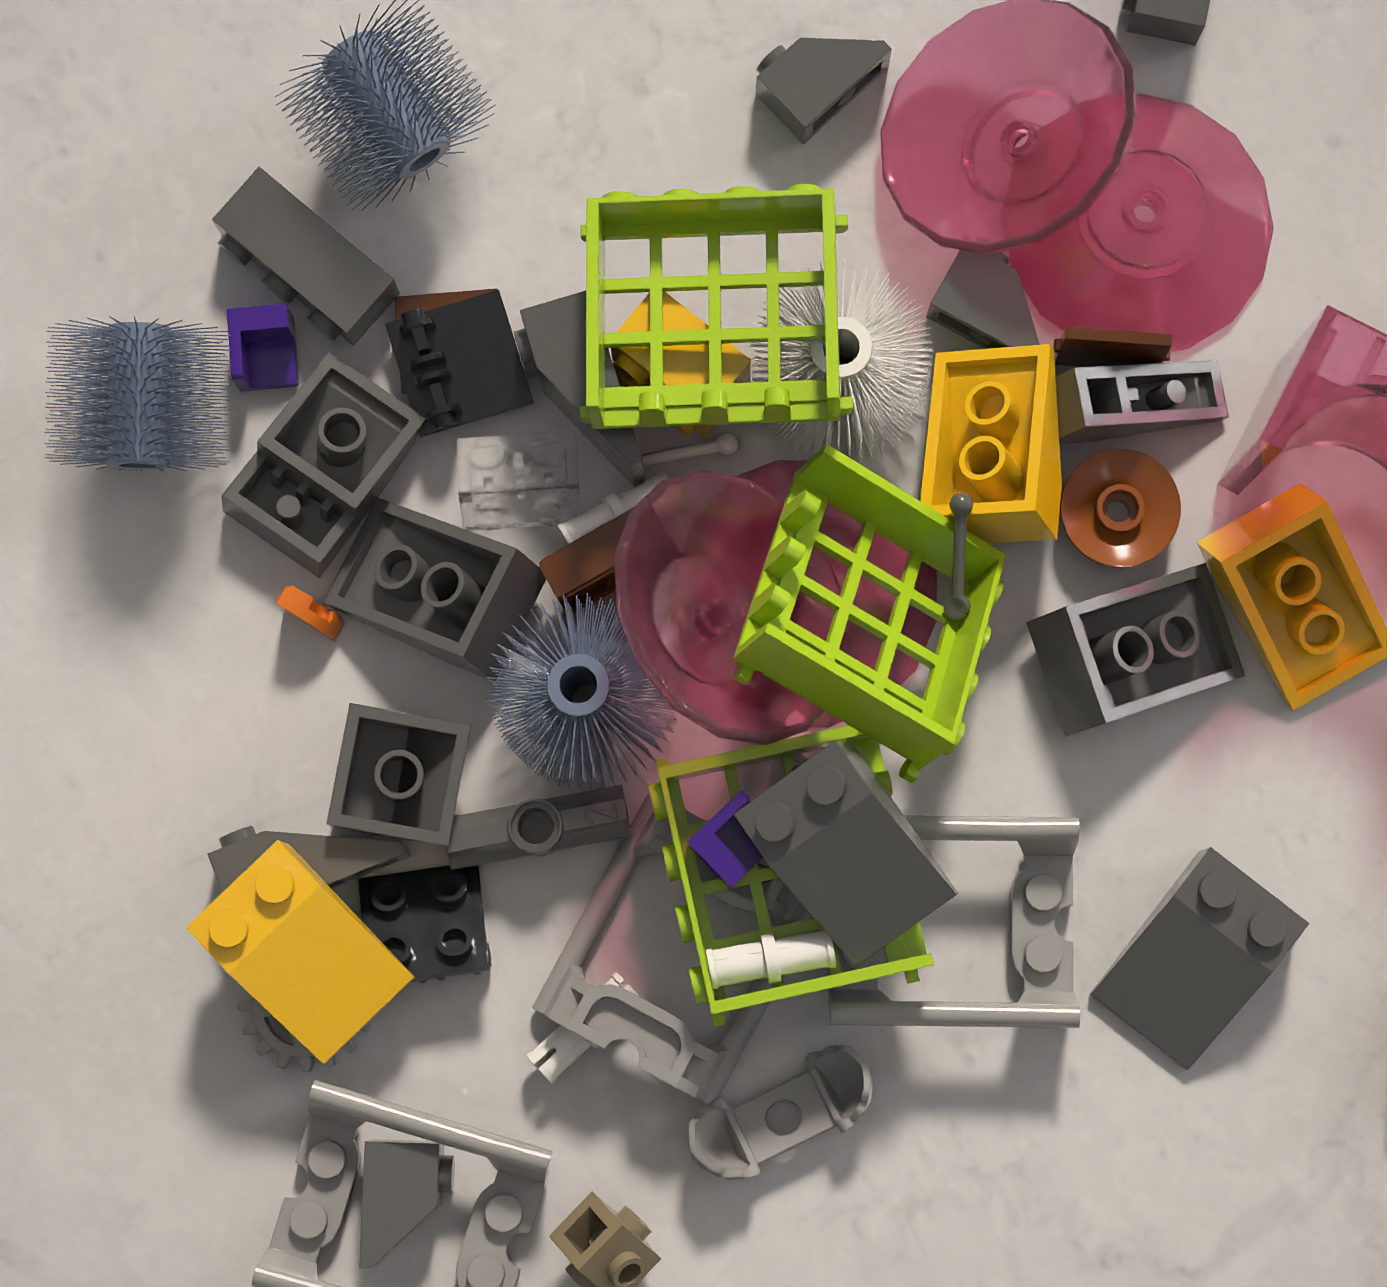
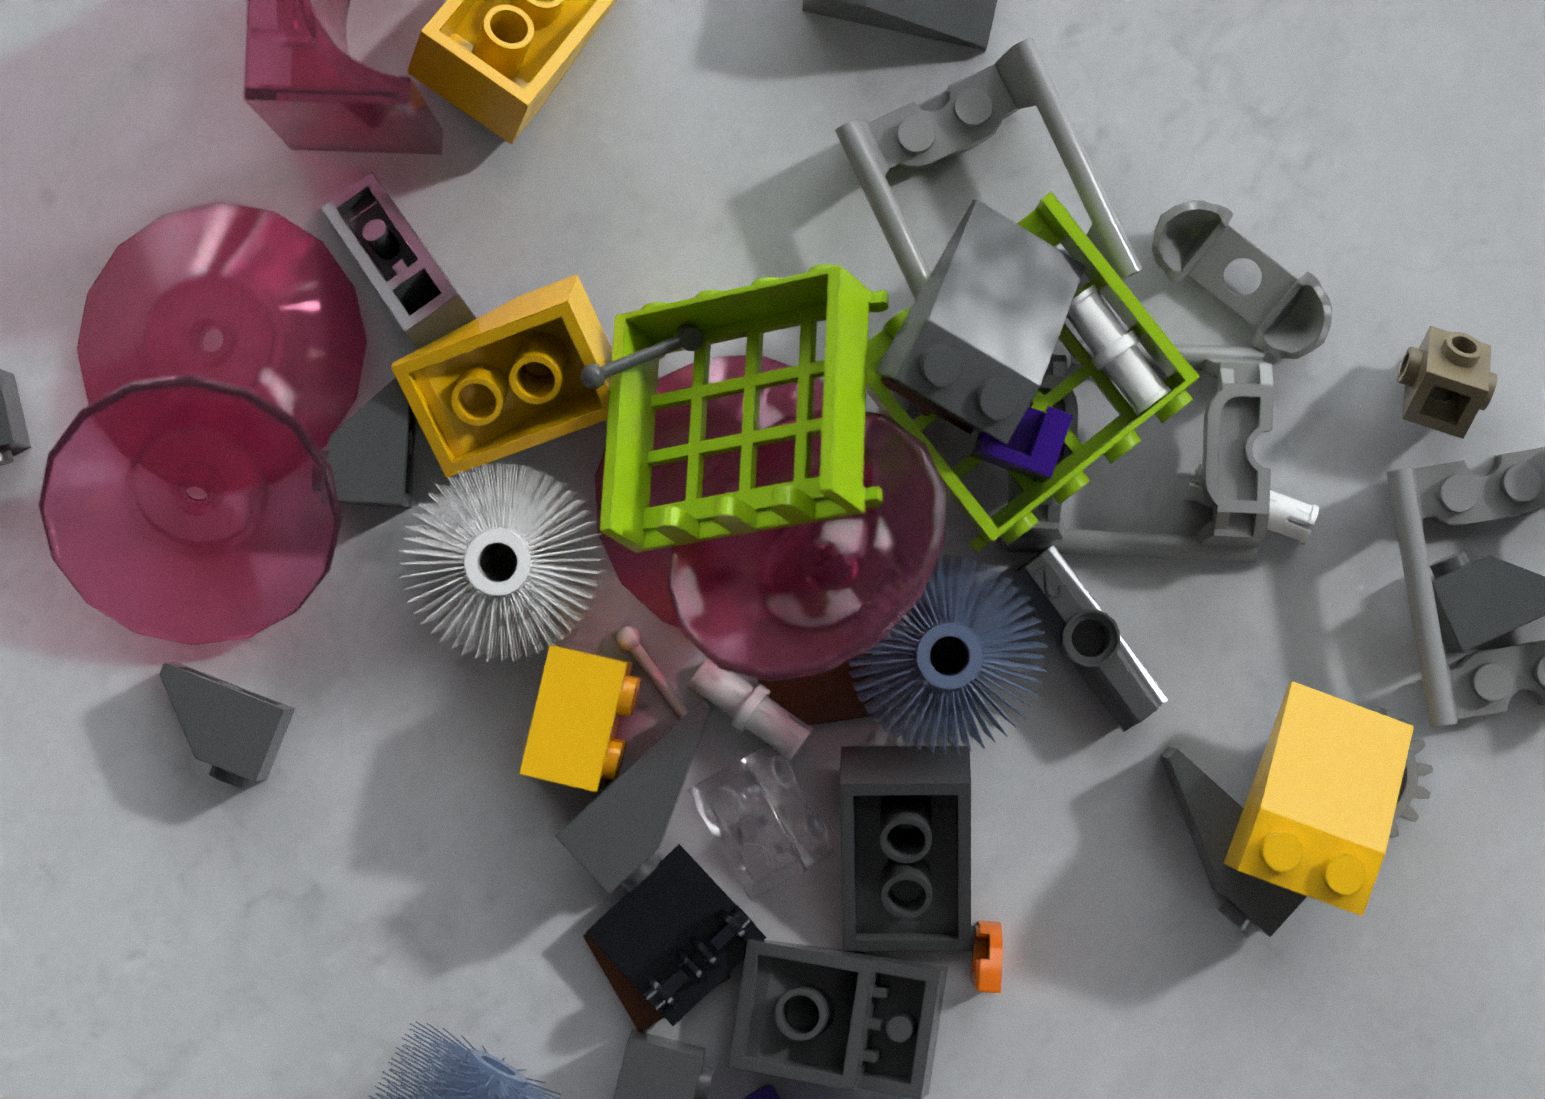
camera: 120 degrees left, 5 degrees up
(398, 775) = (1107, 791): dark grey slope -> none
(429, 920) = (1225, 697): black hinge -> none
(585, 565) = (809, 708): reddish brown slope -> none
(711, 215) = (611, 654): lime window -> none
(1110, 347) = (362, 308): reddish brown piece -> none
(1135, 648) = (644, 154): dark grey slope -> none
(1136, 483) = (508, 199): dark orange dish -> none

